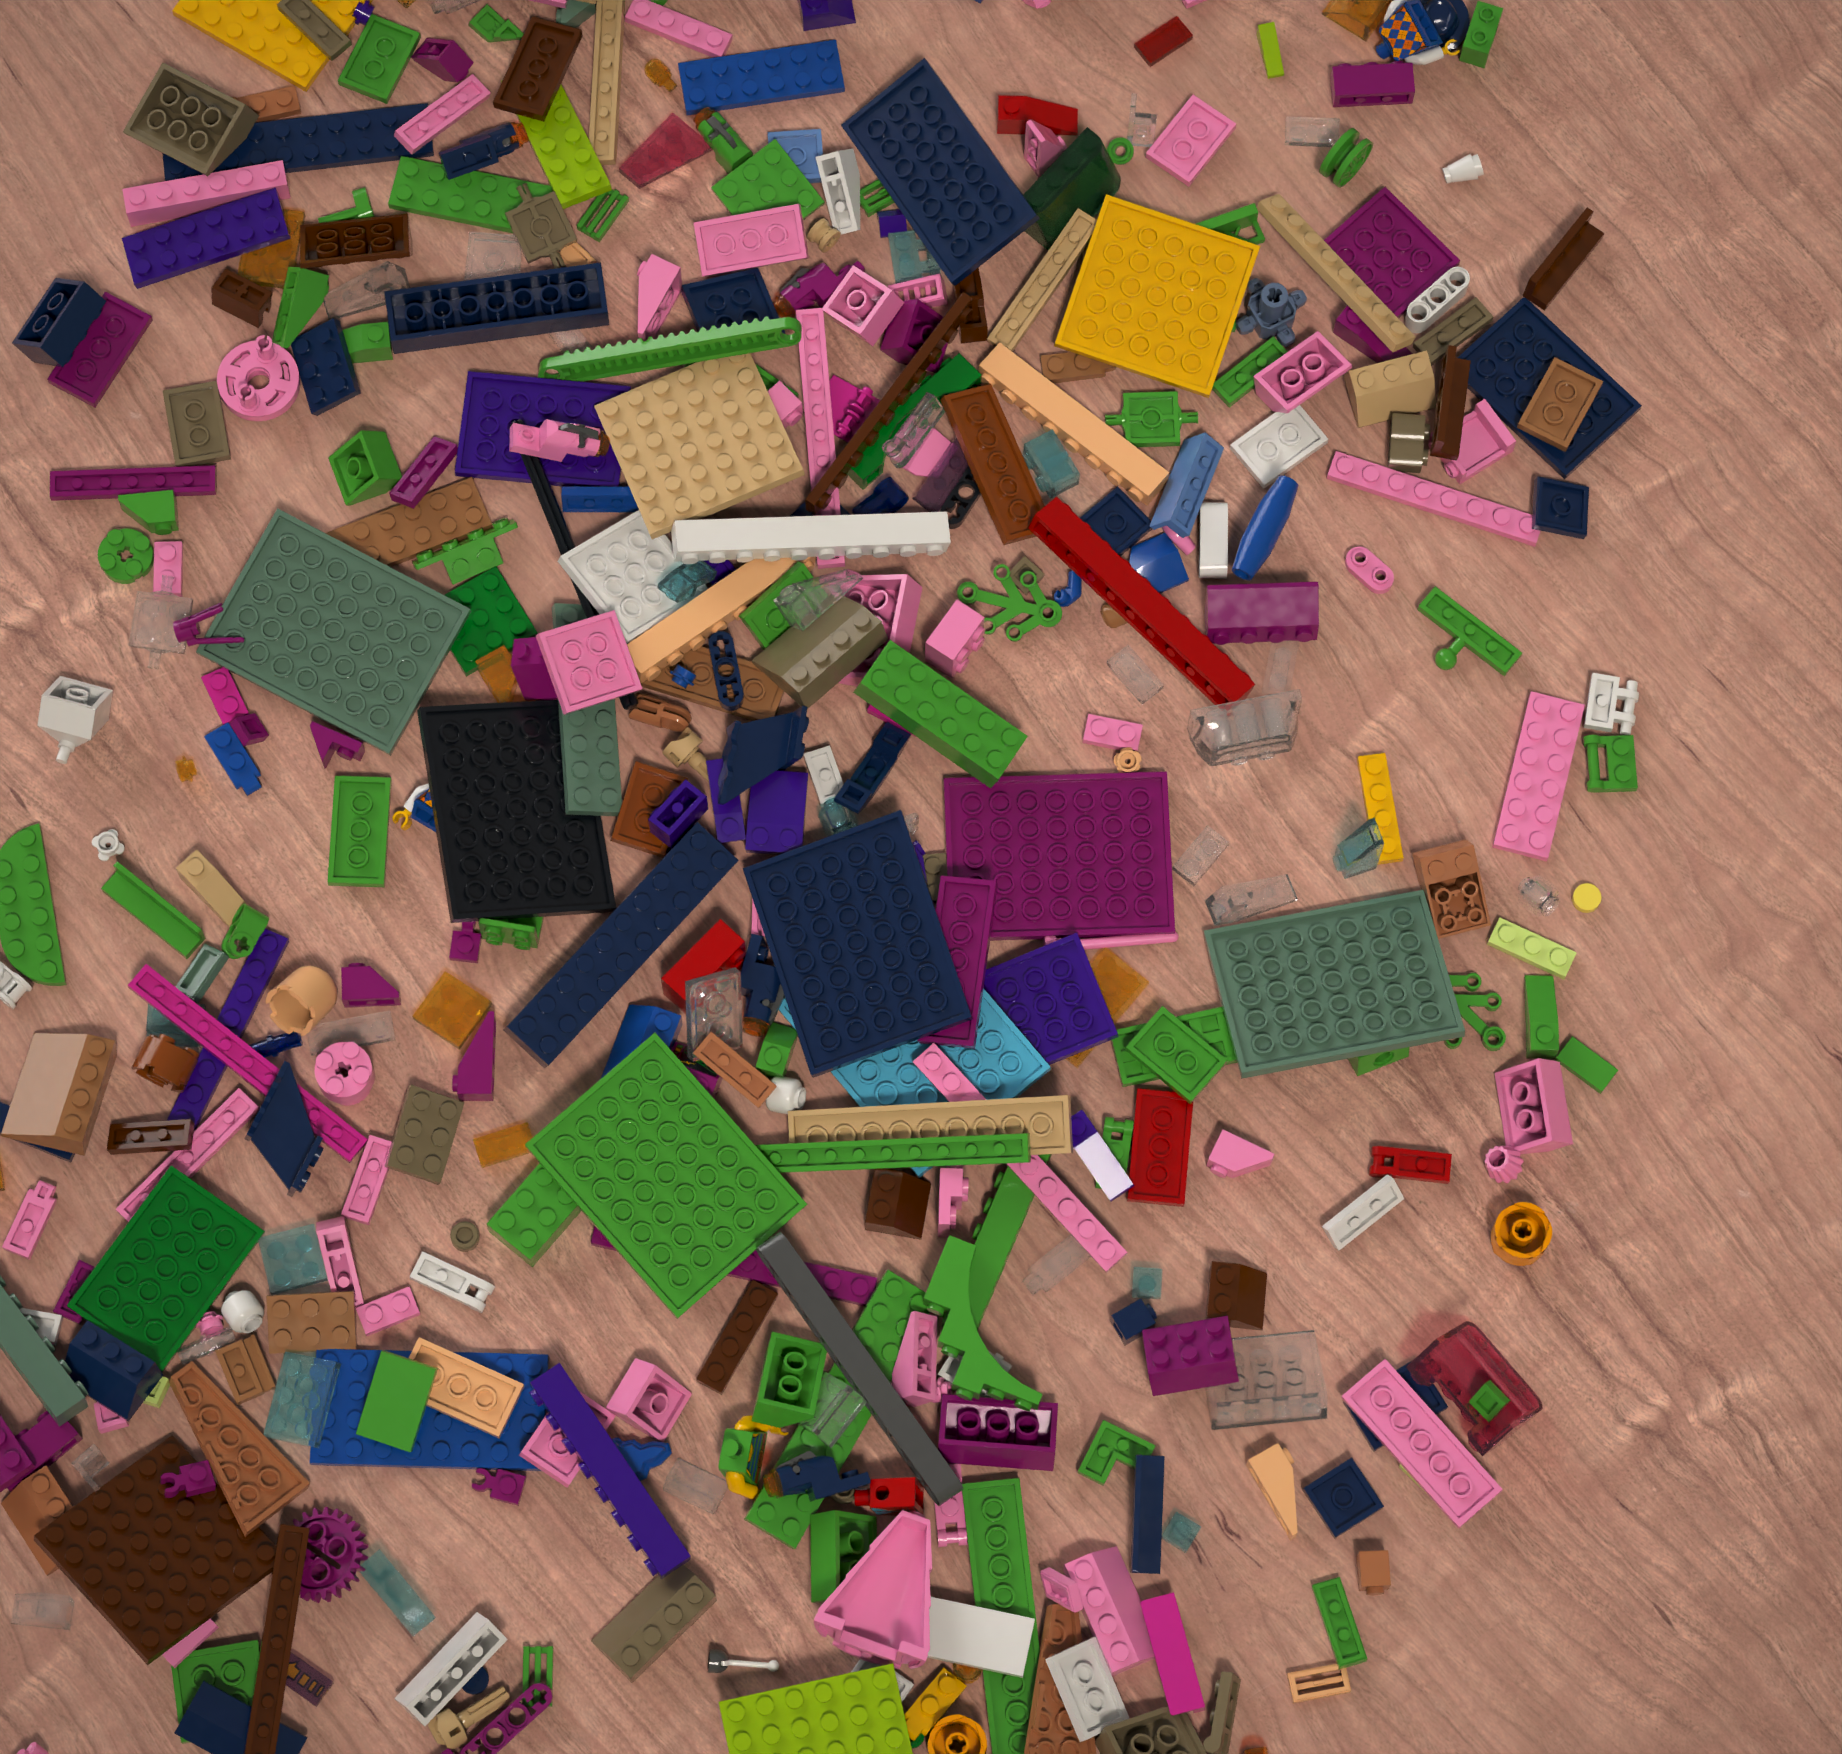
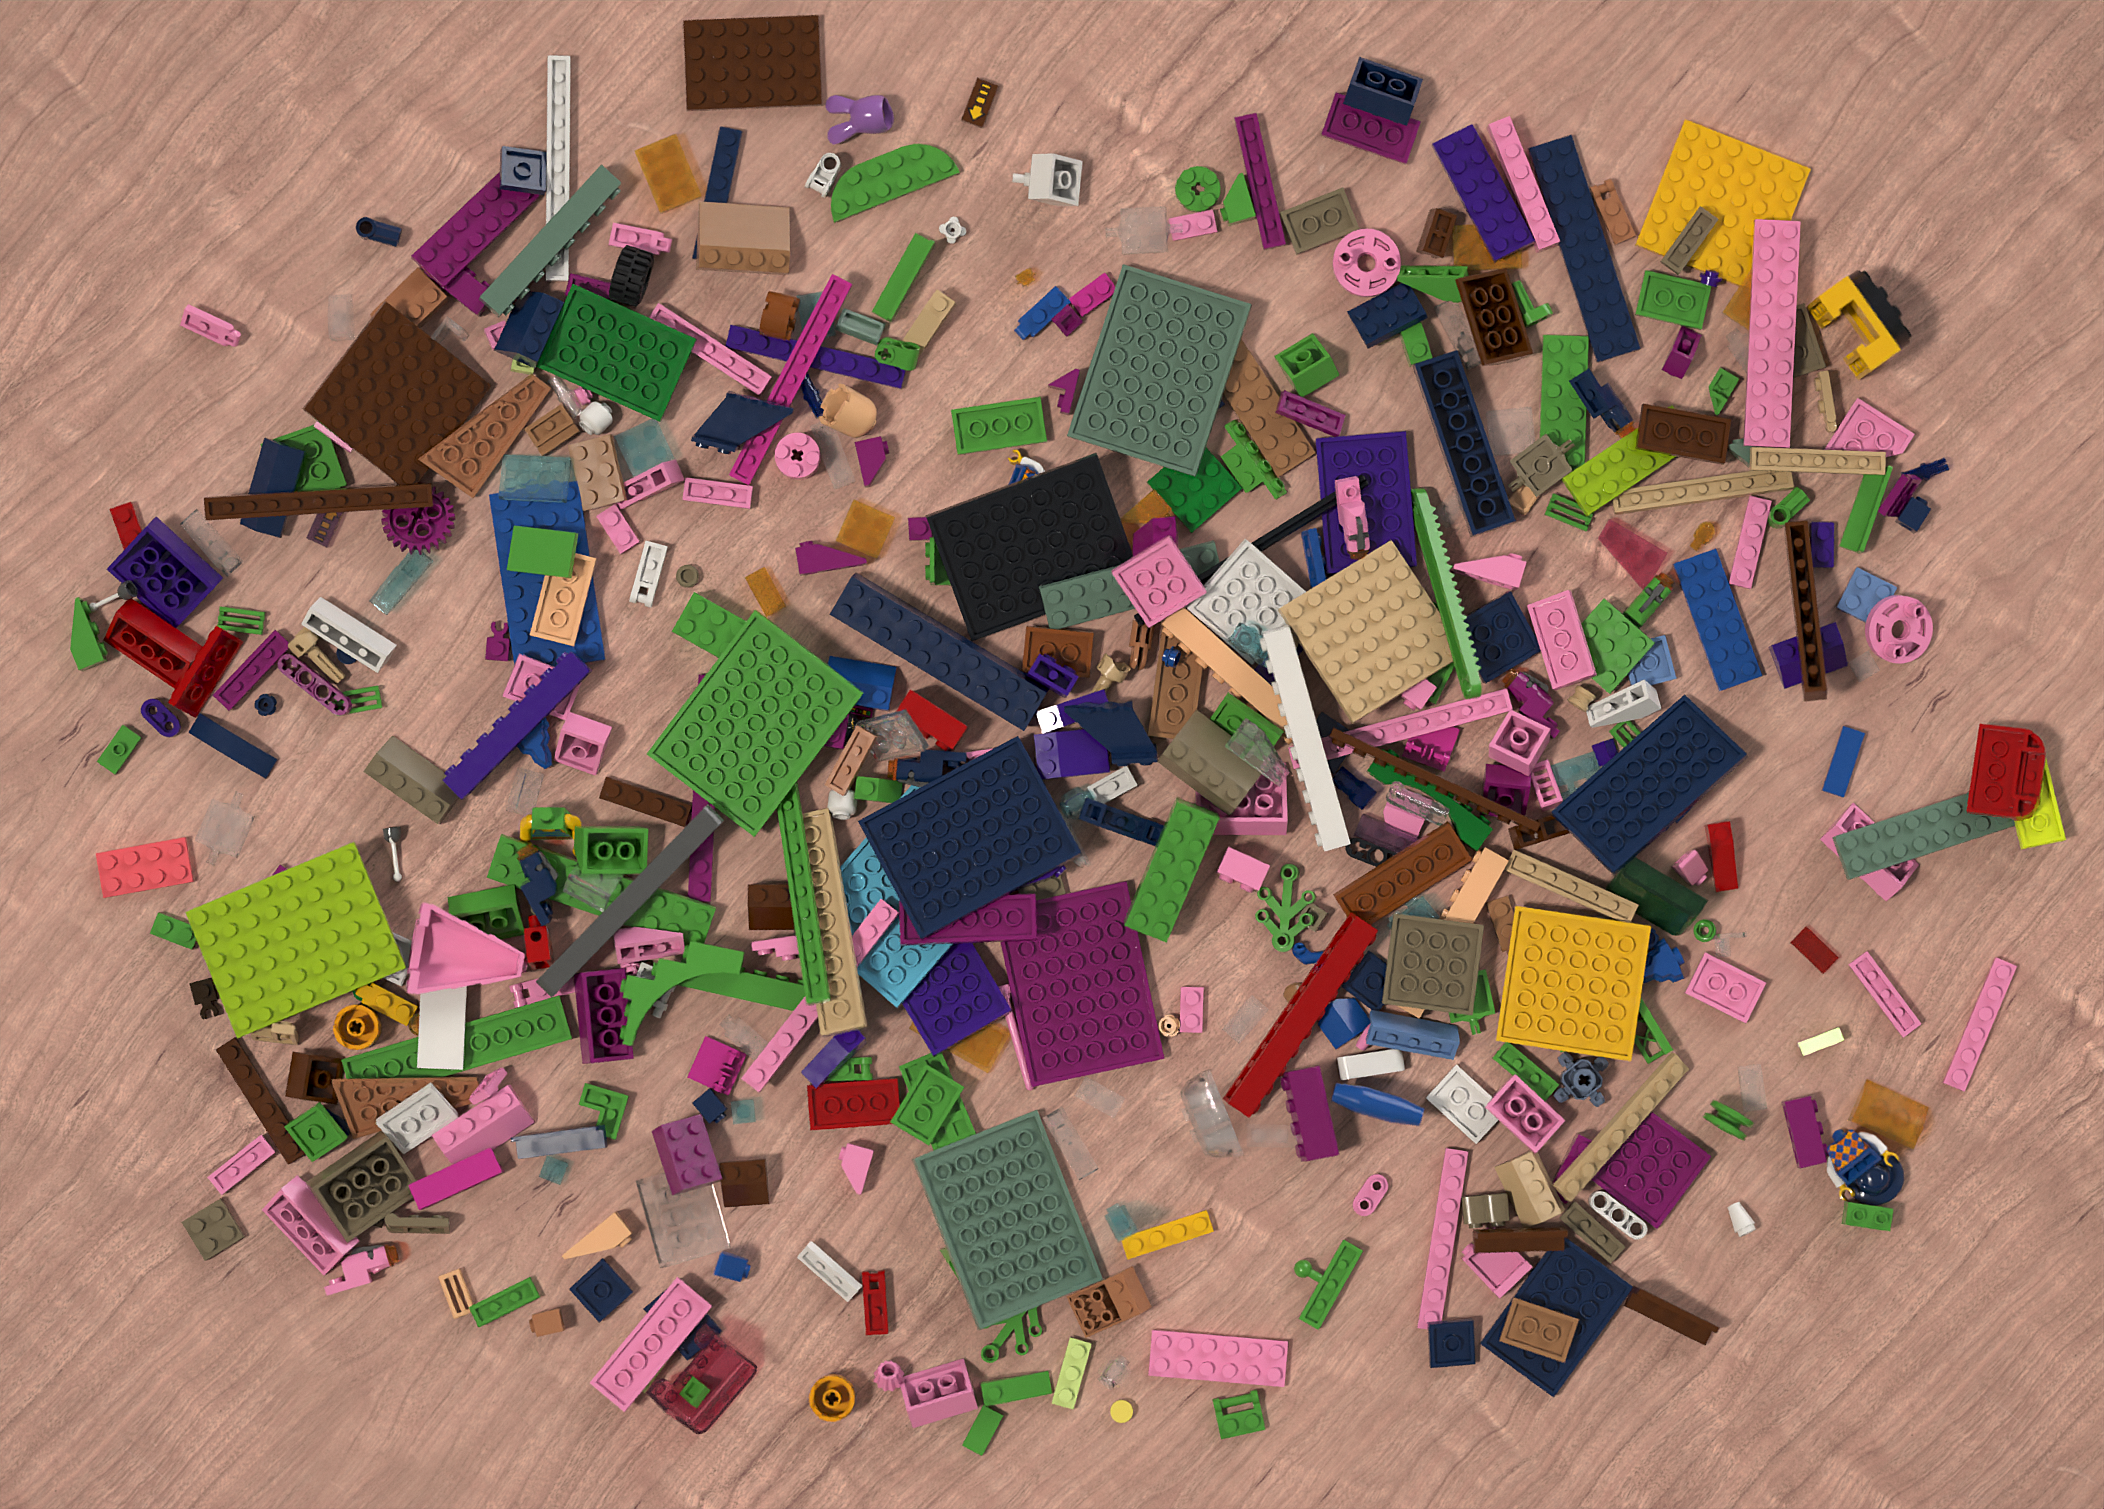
camera: 80 degrees right, 15 degrees up
(73, 1231) = (631, 275): none -> black tyre
(150, 1136) = (719, 317): reddish brown plate -> none
(188, 628) = (1138, 254): magenta plant -> none
(190, 120) = (1581, 157): dark tan slope -> none
(192, 1478) = (456, 409): magenta plate -> none
(424, 1134) = (760, 528): dark tan plate -> none
(442, 114) = (1629, 363): bright pink plate -> none
(735, 677) = (1169, 702): dark blue beam -> none
(1083, 1306) = (716, 1065): none -> dark pink hinge
(1107, 443) = (1432, 964): none -> dark tan plate
(1151, 194) = (1663, 963): none -> blue rock
(1338, 1329) = (732, 1267): none -> blue slope
(1602, 701) = (1289, 1401): white plate -> none

